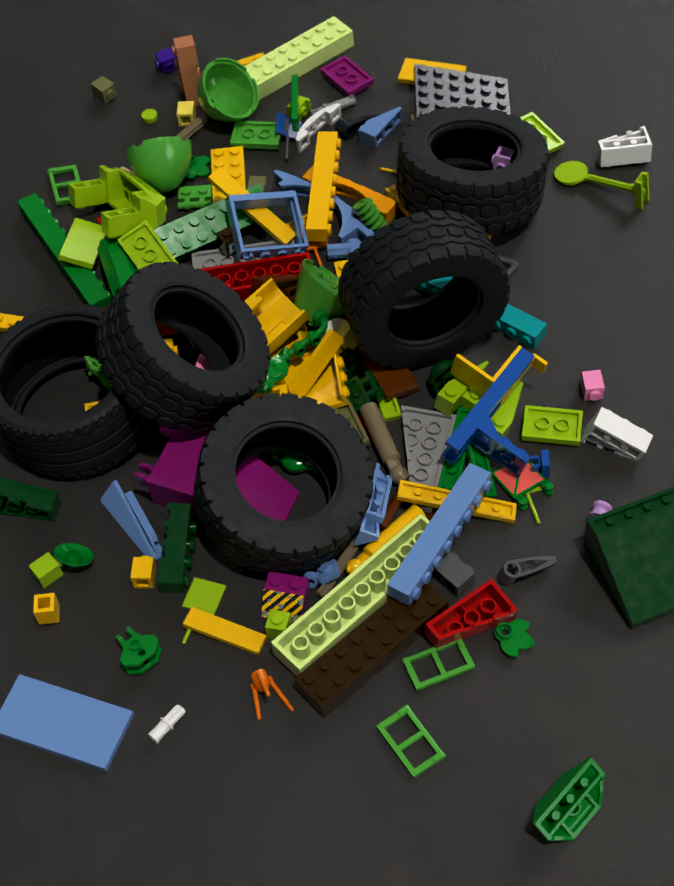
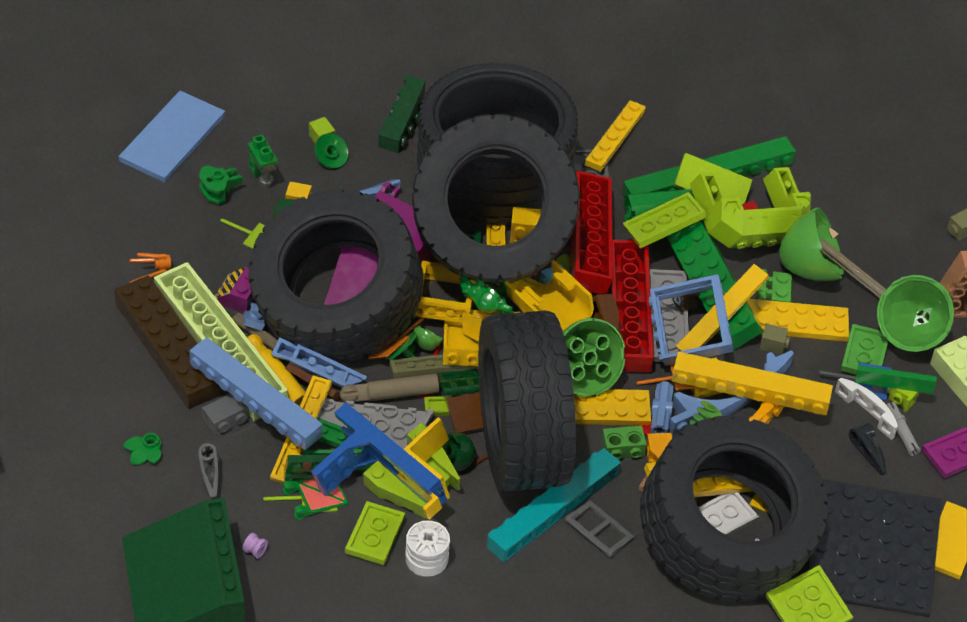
camera: 90 degrees right, 5 degrees down
(46, 608) = (278, 127): yellow brick -> none
(55, 171) = (818, 194): bright green window -> none
(103, 603) = (262, 161): none -> green hips
(149, 116) = (916, 263): lime tile -> none
(166, 723) = (145, 198): white axle -> none
(198, 167) = (823, 293): green plate -> none
(225, 631) = (221, 246): yellow tile -> none
(277, 623) = (212, 277): lime brick -> none
(379, 127) = (855, 464): medium blue slope -> none
(406, 710) = (67, 346): bright green window -> none
(443, 674) = (145, 367): bright green window -> none
(471, 615) = (173, 418): red wedge -> none
(509, 480) = (301, 466): none -> dark green plate
(543, 463) = (328, 513): blue tile -> none
(562, 379) = (427, 548): none -> white wheel
(592, 385) = (415, 578): bright pink brick -> none
(616, 434) = (341, 579): white wedge -> none

